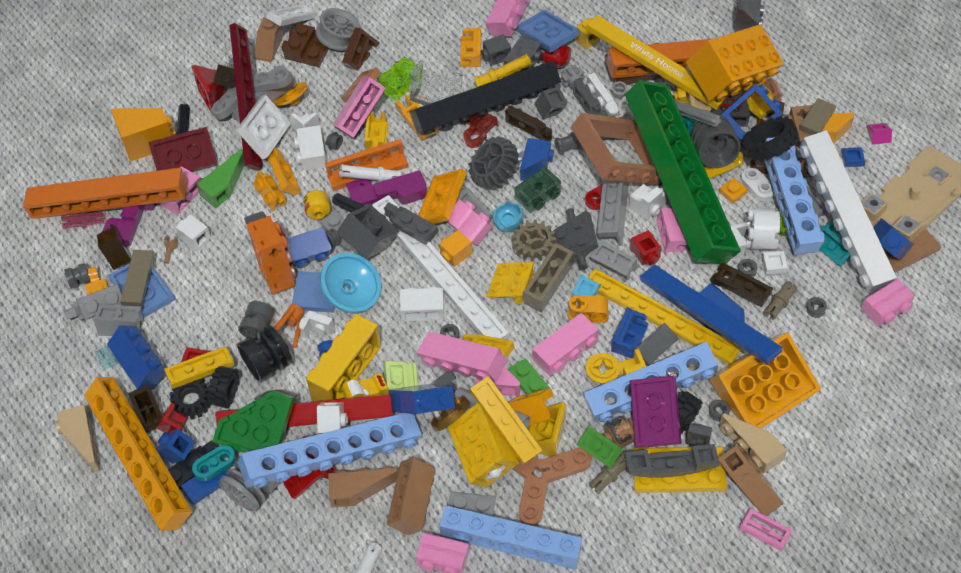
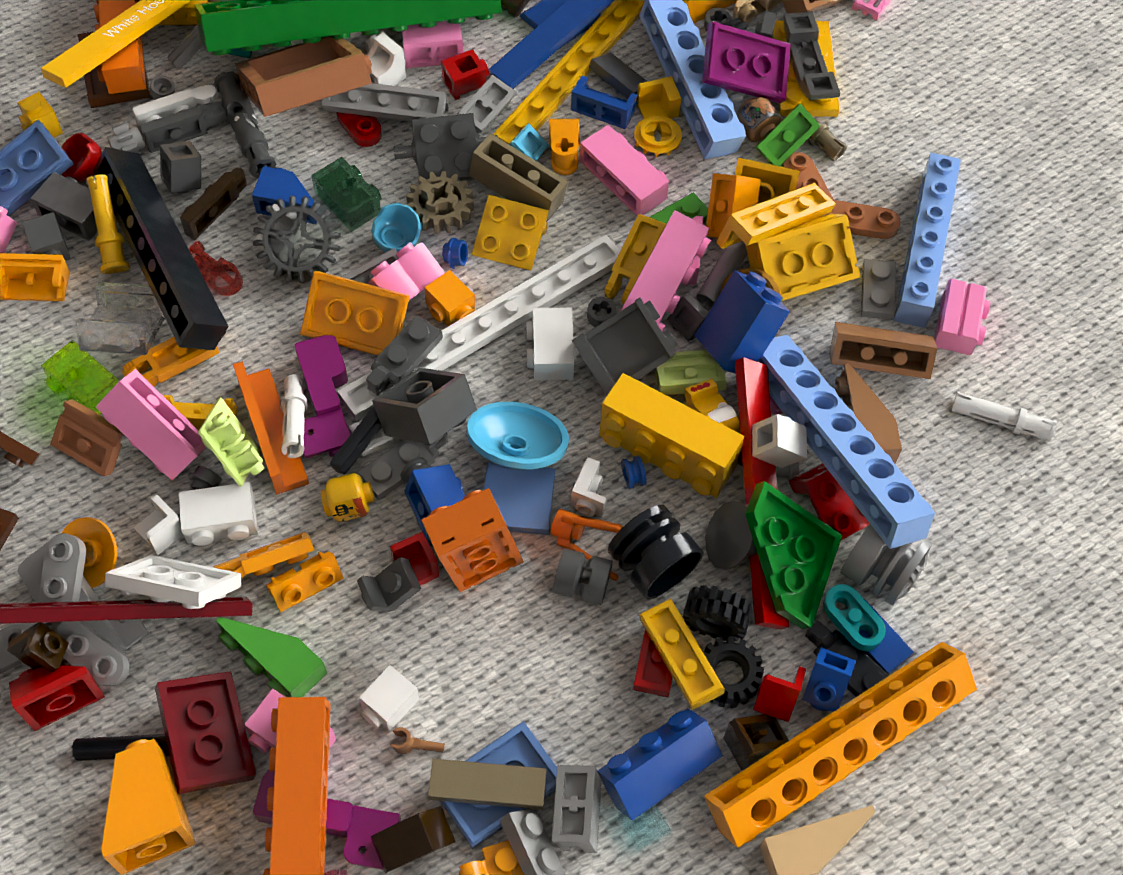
camera: 95 degrees left, 5 degrees up
(345, 139) = (231, 443): none -> yellowish green hinge
(408, 335) = (626, 345): none -> dark grey panel
(495, 251) = (455, 252): none -> blue plate

